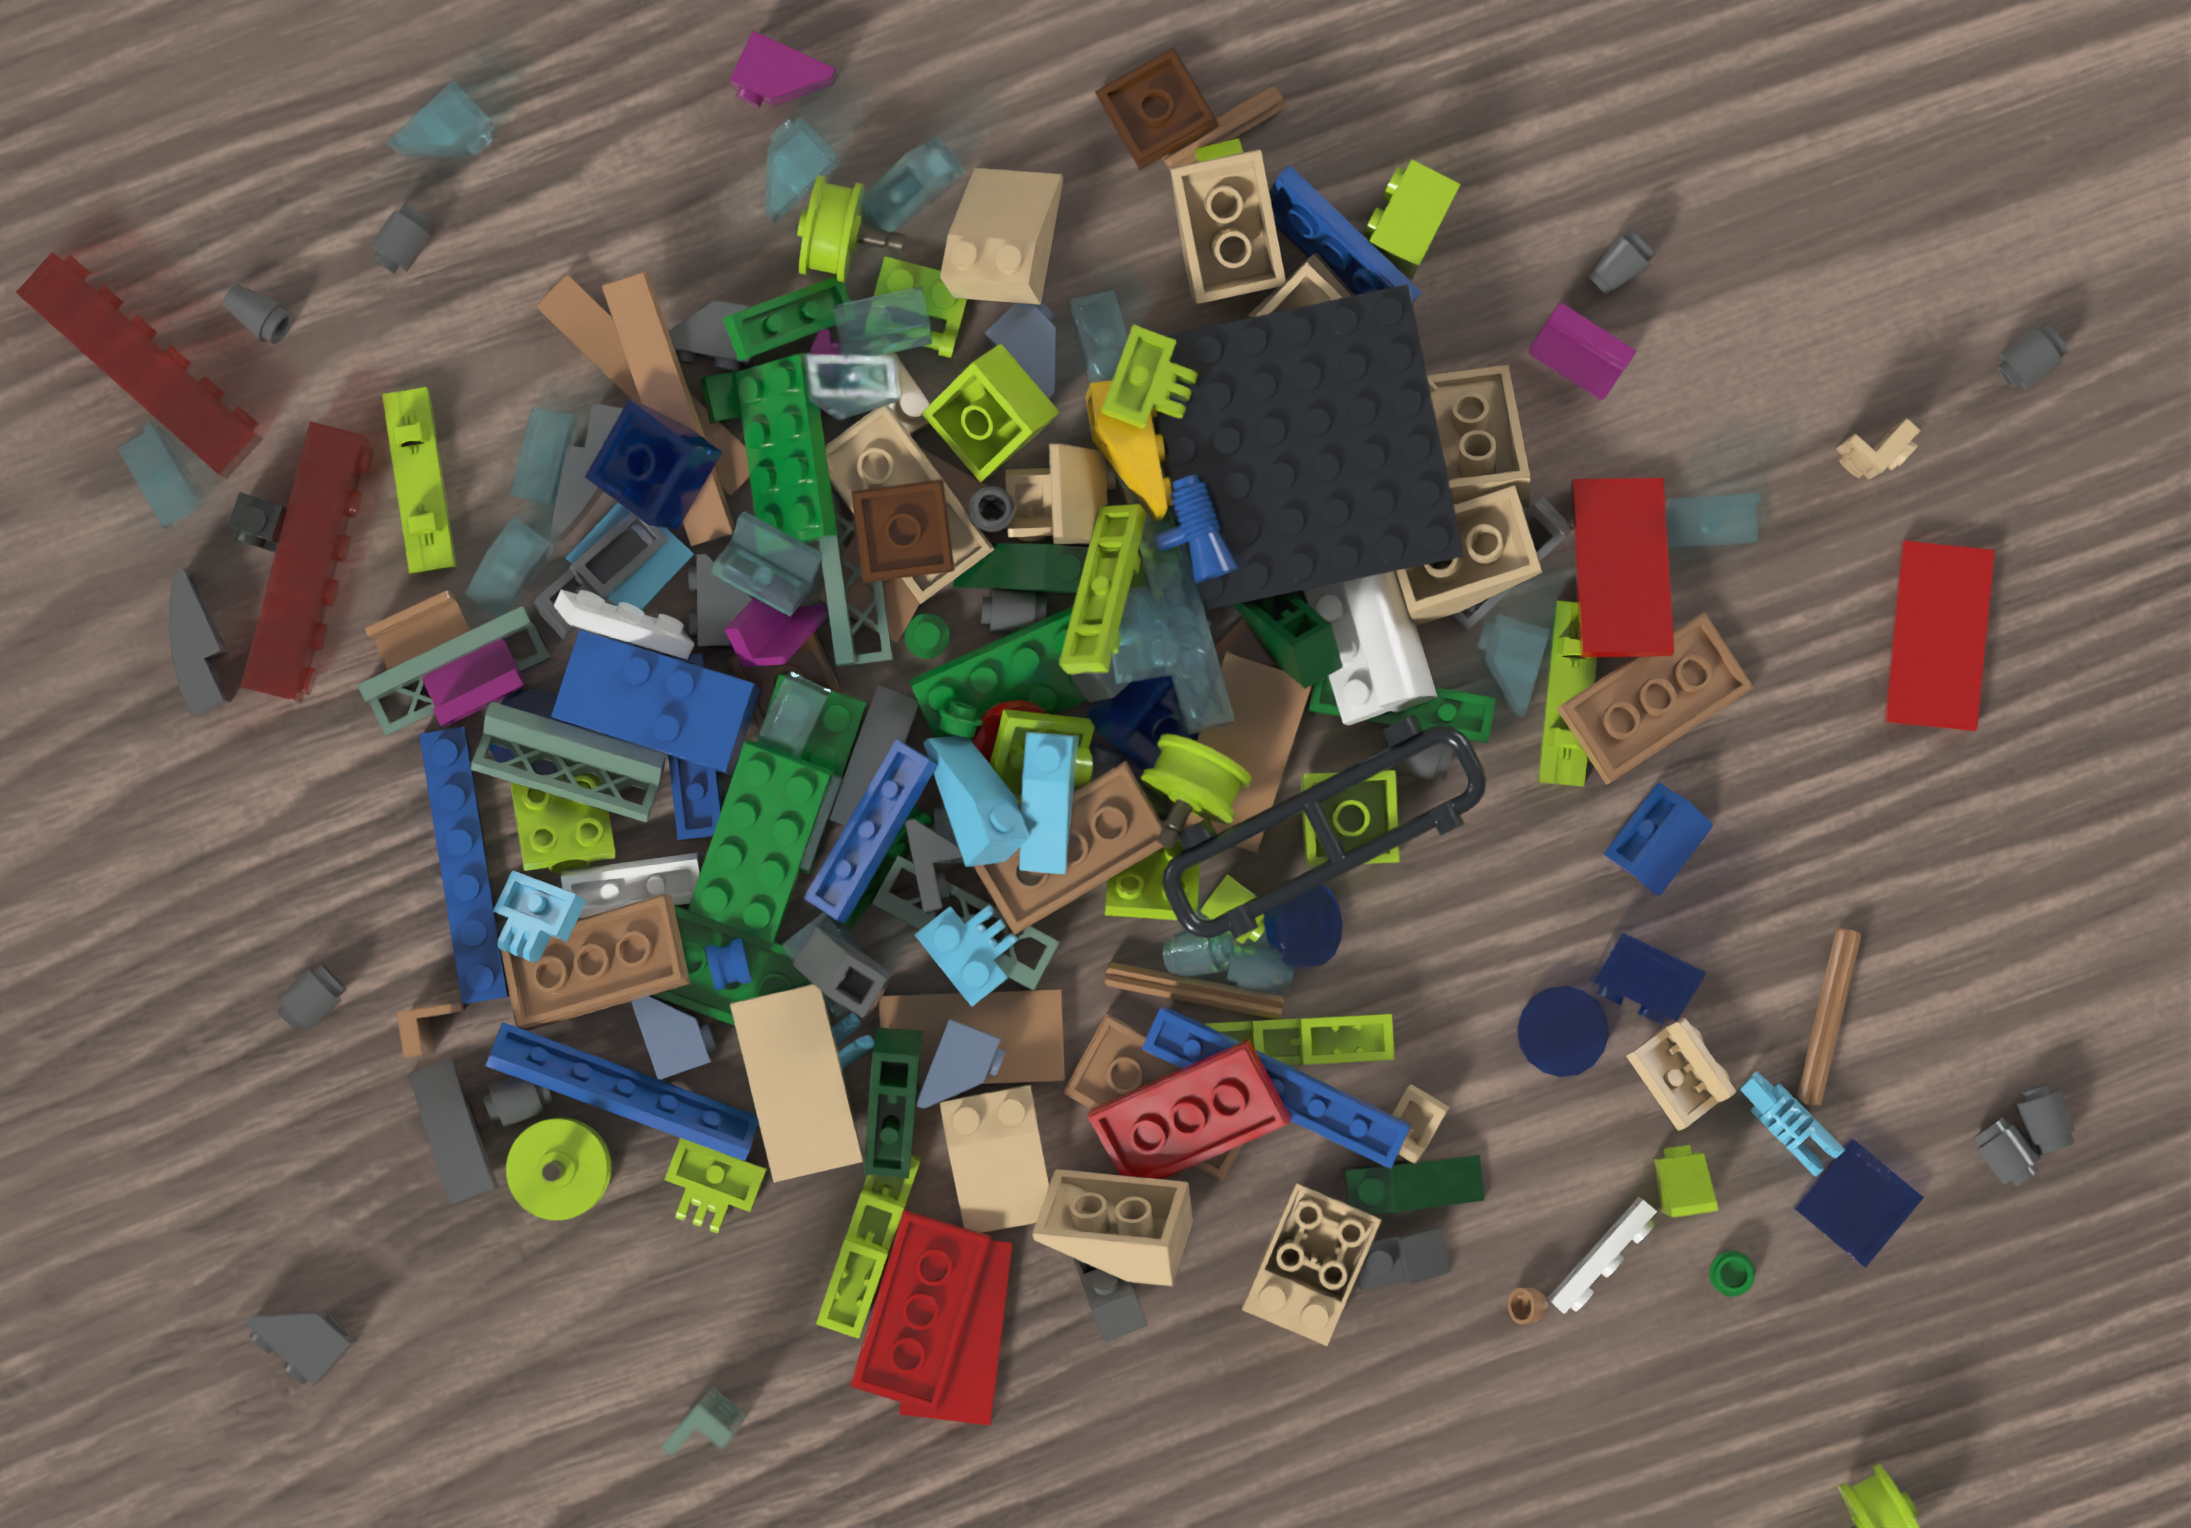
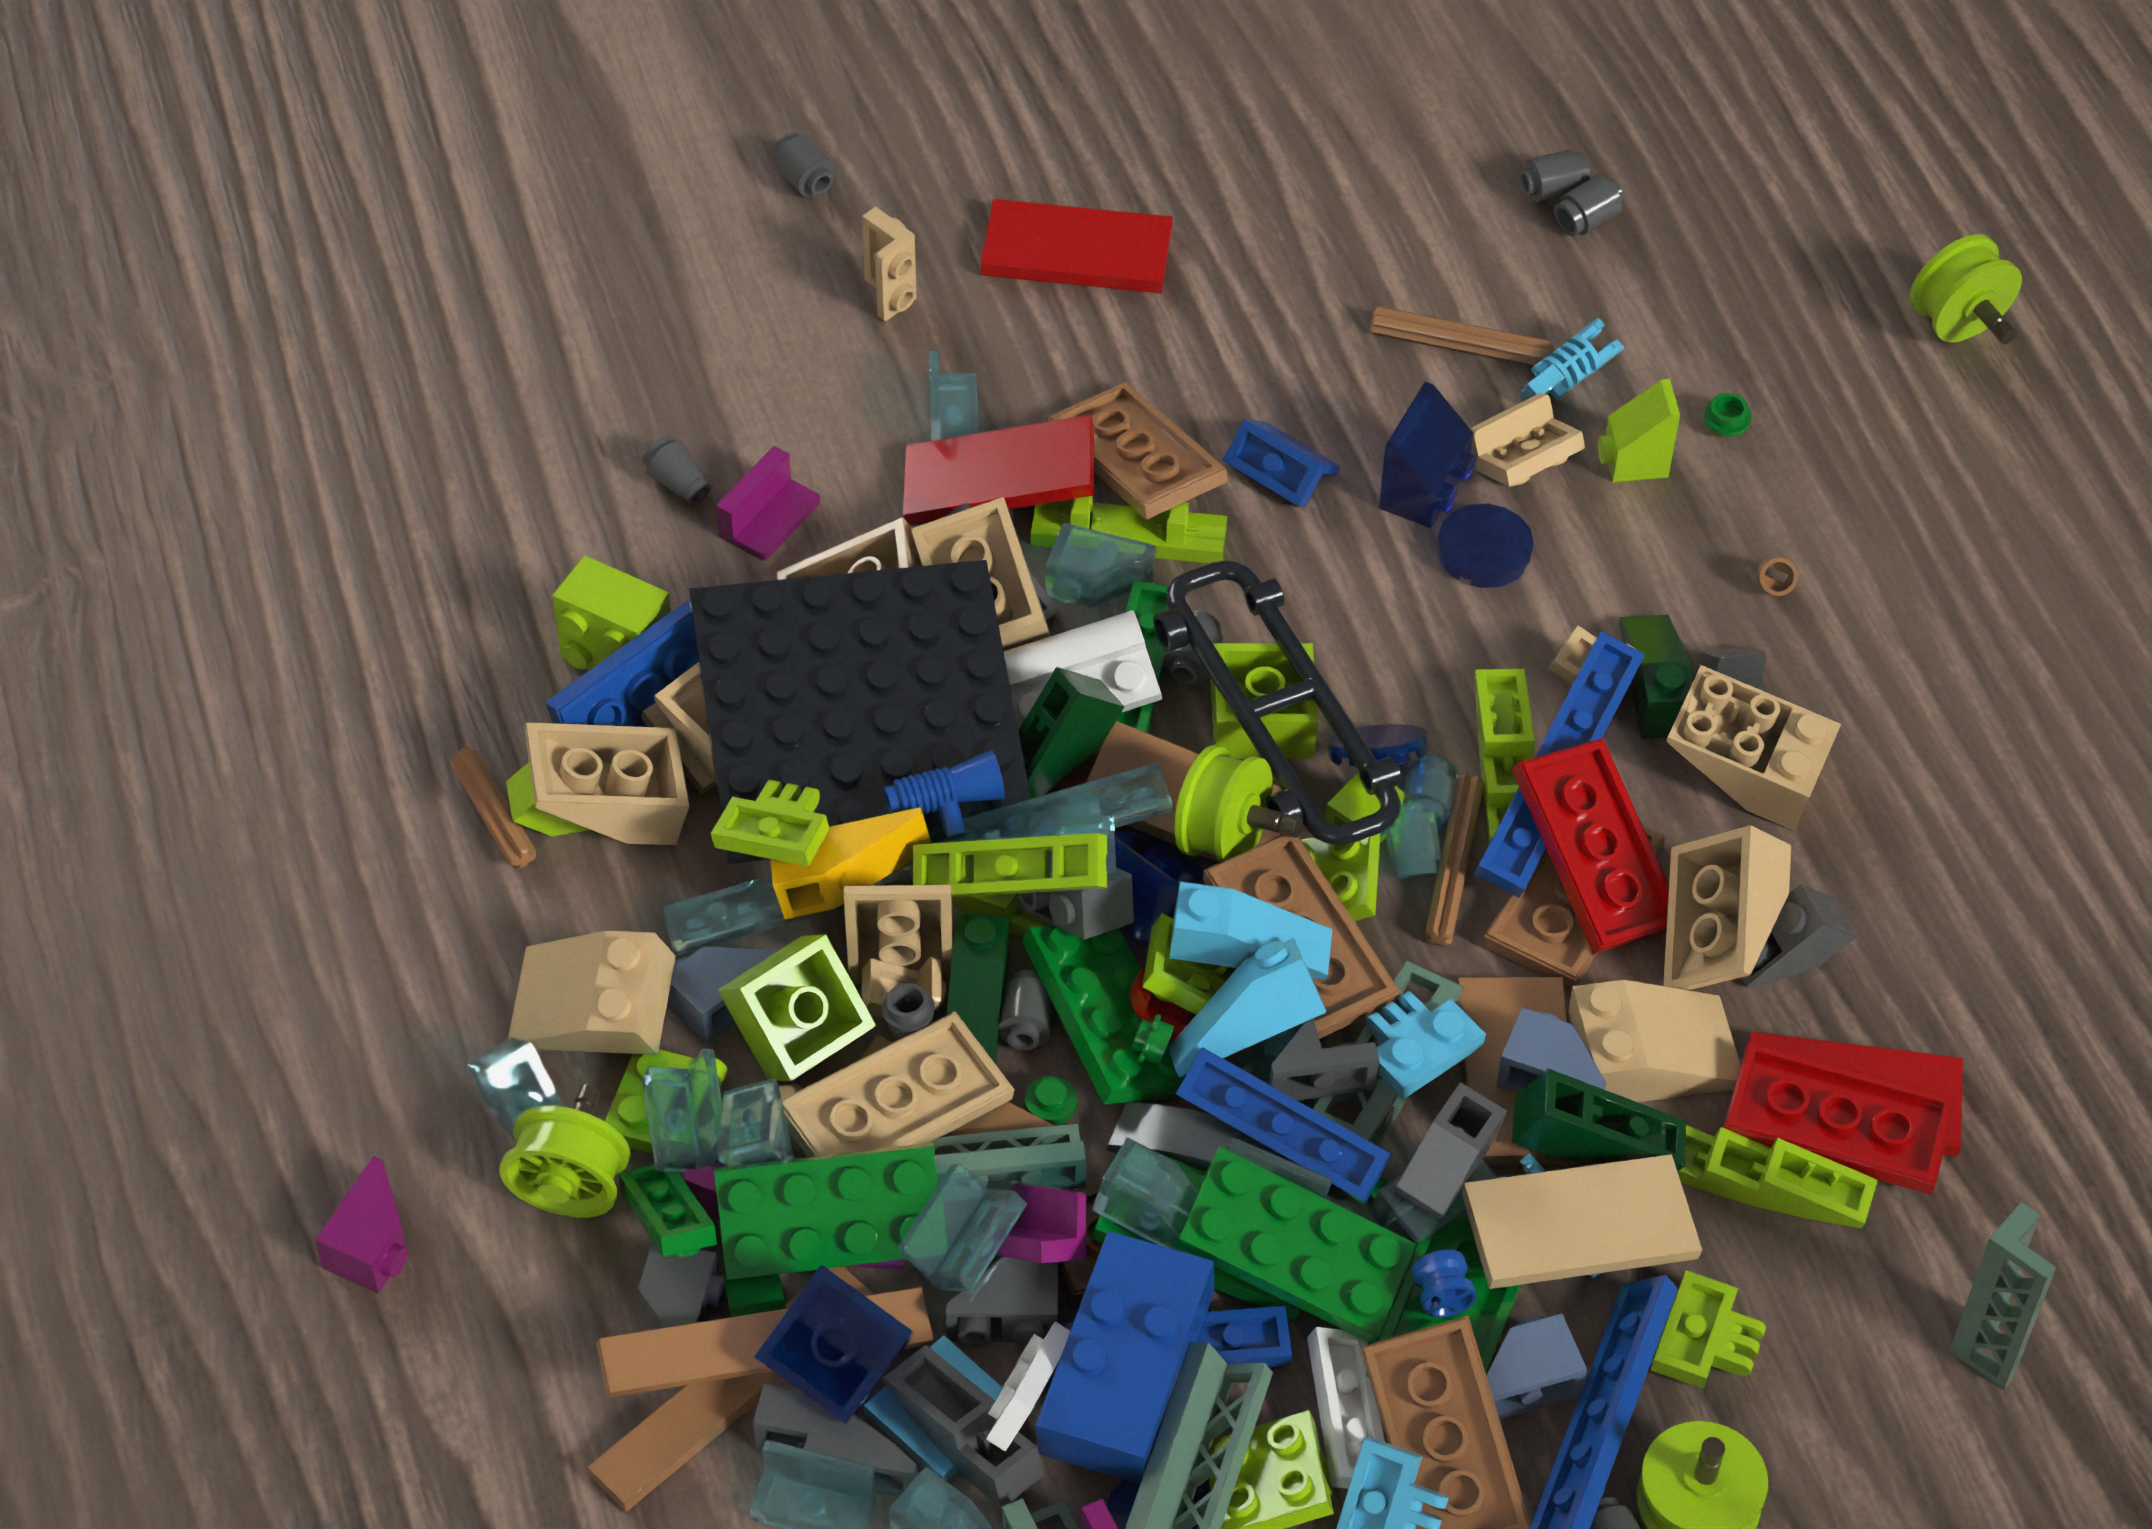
camera: 90 degrees left, 35 degrees down
(793, 166) = (485, 1215): clear light blue slope -> none
(903, 530) = (930, 1085): reddish brown plate -> none
(1156, 108) = (461, 863): reddish brown plate -> none
(1603, 1257) = (1718, 511): white plate -> none
(1858, 1203) = (1649, 321): clear blue tile -> none

